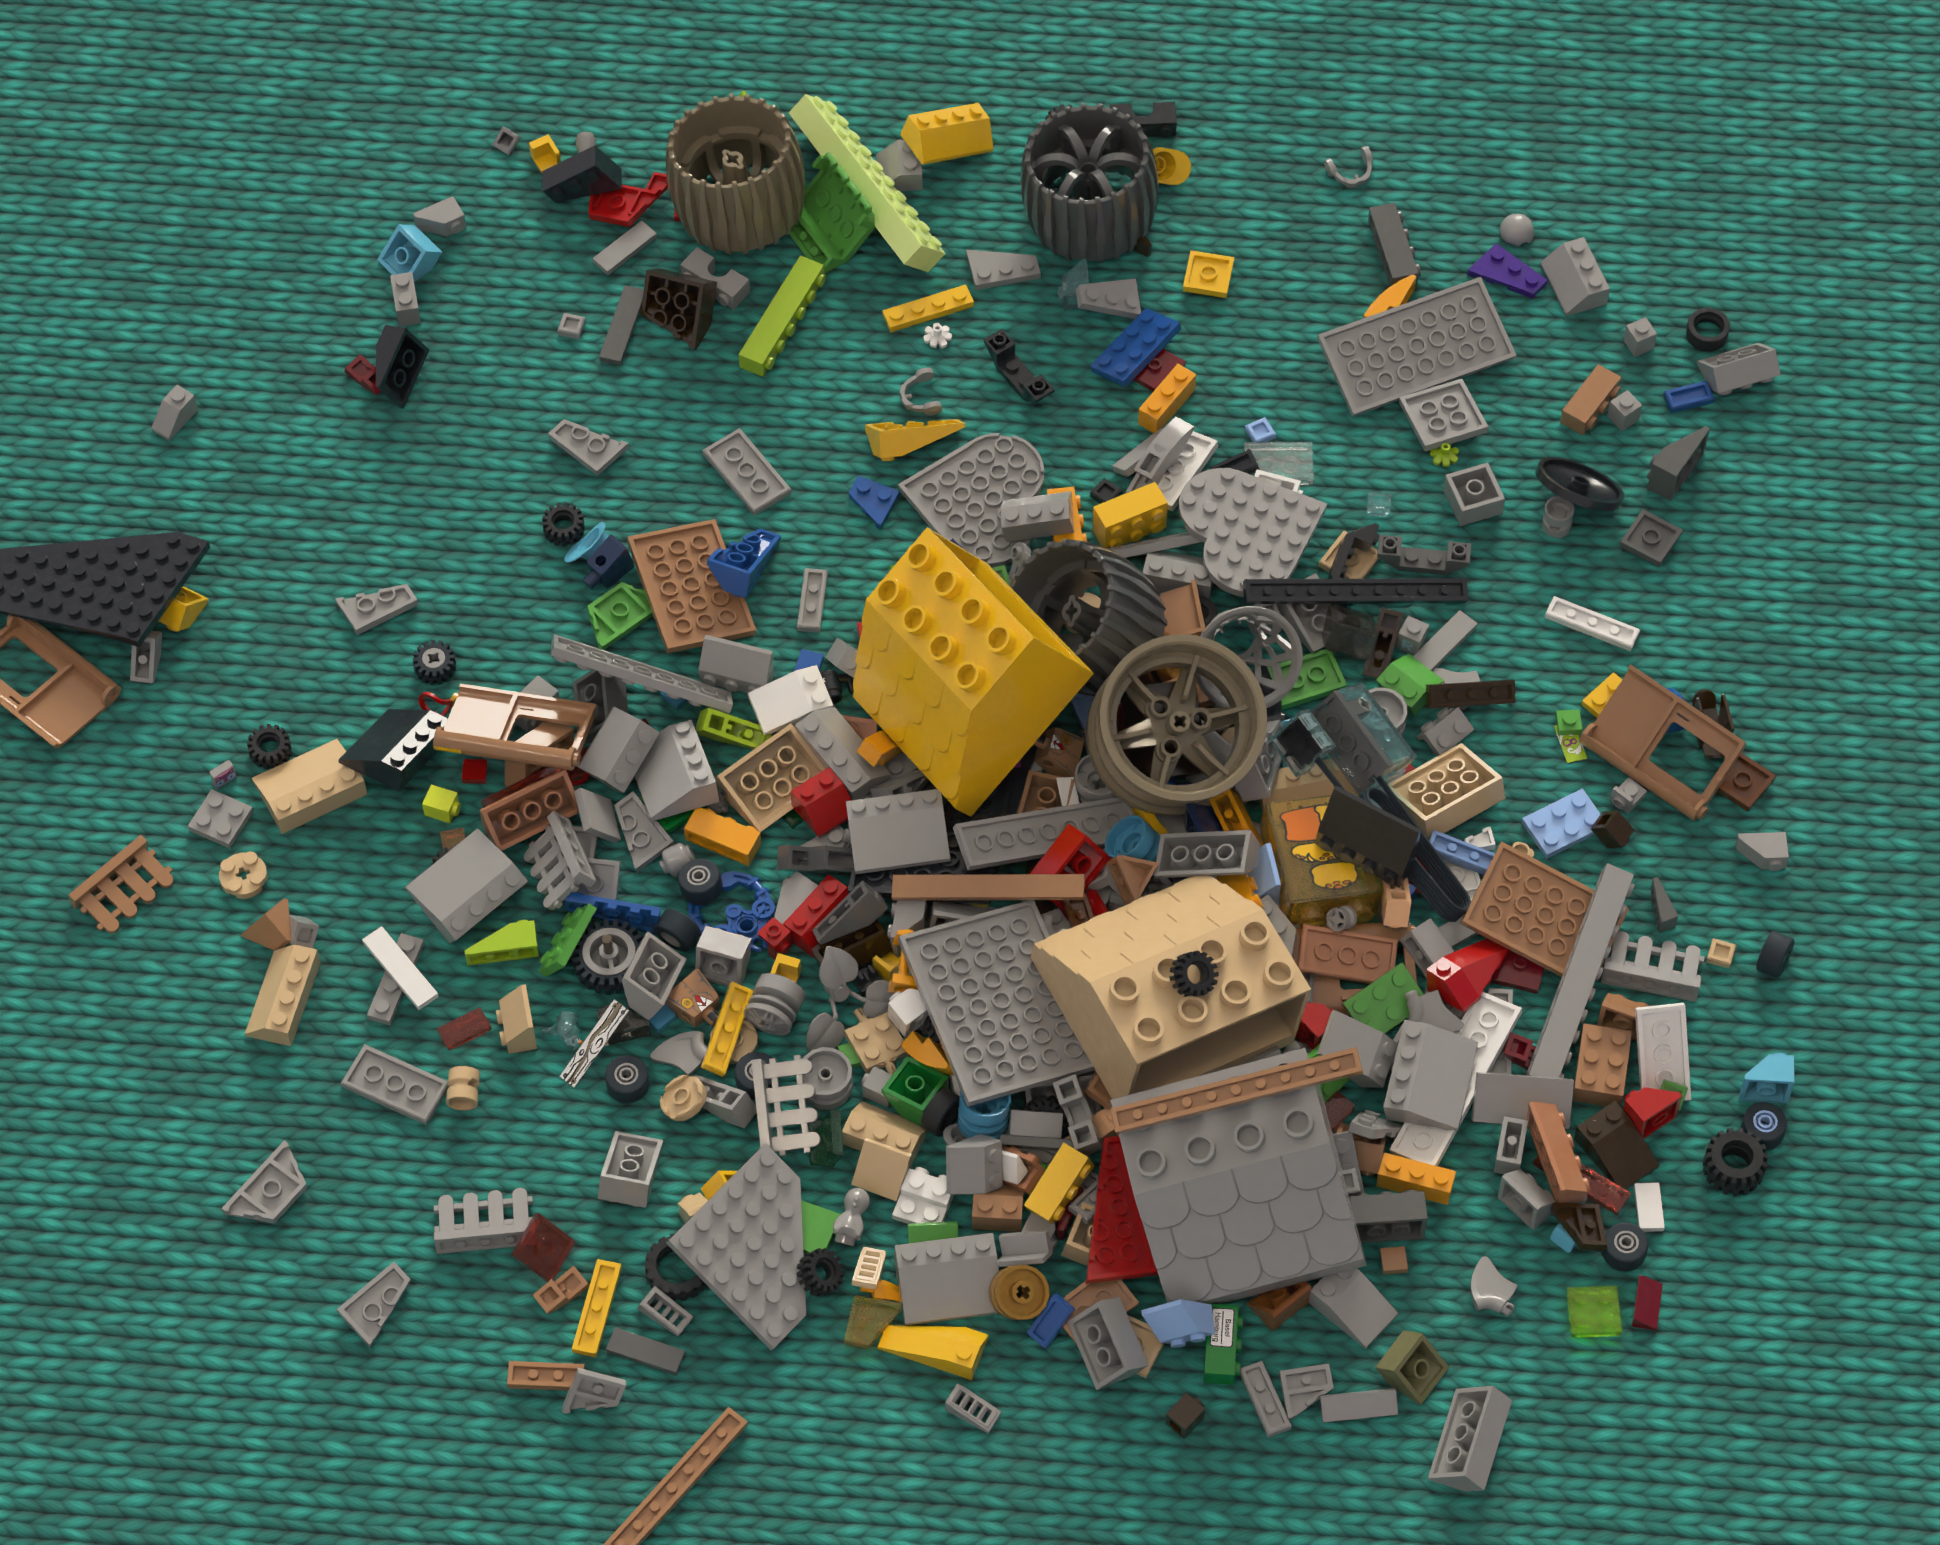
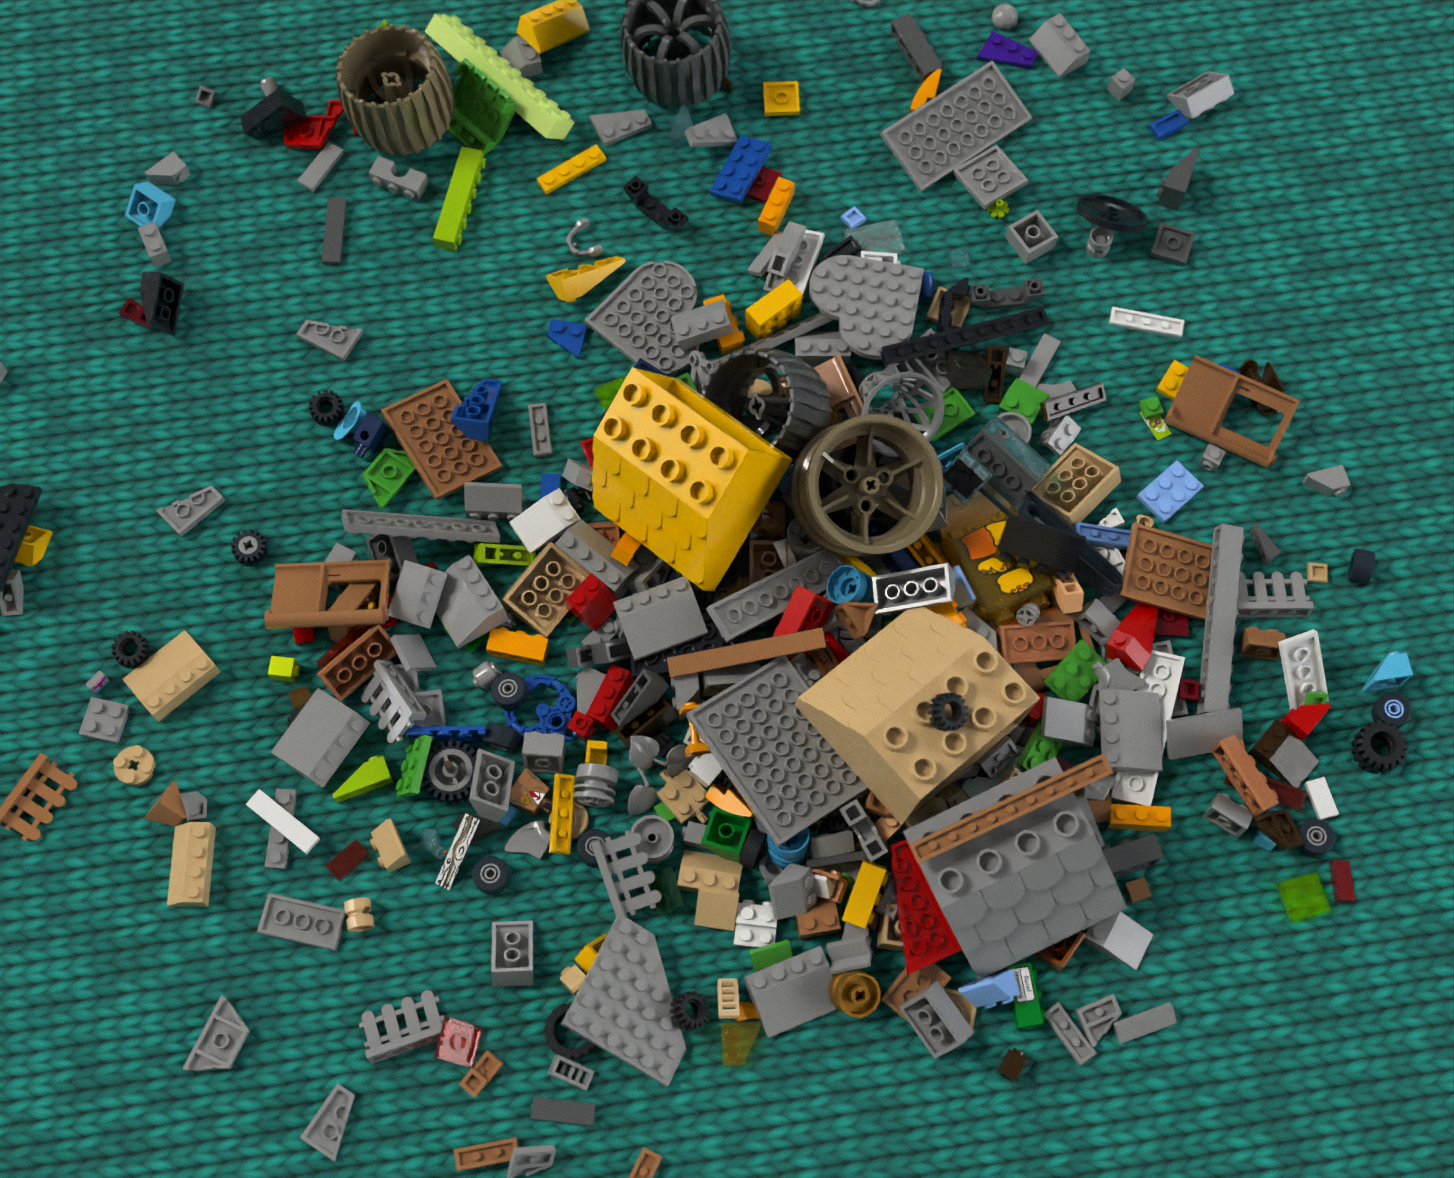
camera: 15 degrees left, 10 degrees up
(395, 746) = (233, 629): black slope -> none
(449, 702) = (270, 580): red piece -> none
(544, 153) = (238, 101): yellow panel -> none
(571, 326) = (293, 240): light grey tile -> none
(596, 1308) = (514, 1083): yellow plate -> none
(644, 837) = (455, 662): light grey wing -> none
(679, 303) = (375, 204): dark brown wedge -> none
(683, 1098) = (541, 881): tan tile -> none
(728, 1103) = (571, 876): light grey slope -> none
(747, 471) = (462, 333): light grey tile -> none
(816, 1226) = (677, 969): bright green tile -> none
(849, 1224) = (702, 963): light grey animal -> none
(886, 965) = (677, 729): yellow panel -> none
(937, 335) = (584, 190): white plant -> none
(940, 1347) = (802, 1049): yellow wedge -> none
(968, 1396) = (822, 1100): light grey slope -> none
(1051, 1320) = (885, 1010): blue tile -> none
(1105, 491) = (747, 293): black tile -> none
(1172, 166) = (734, 15): yellow piece -> none
(1328, 526) = (927, 286): none -> blue cone
(1412, 1366) = (1177, 979): olive slope -> none
(1470, 1438) = (1239, 1031): light grey slope -> none
(1491, 1289) = (1219, 897): light grey arm -> none
(1510, 1145) = (1205, 774): light grey brick -> none
(1591, 400) = (1098, 142): medium nougat brick -> none
(1601, 1065) = (1256, 688): medium nougat brick -> none
(1612, 829) = (1210, 490): dark brown brick -> none
(1624, 410) = (1125, 145): light grey brick -> none
(1707, 343) = (1167, 79): black tyre -> none
(1746, 782) = (1300, 429): reddish brown plate -> none

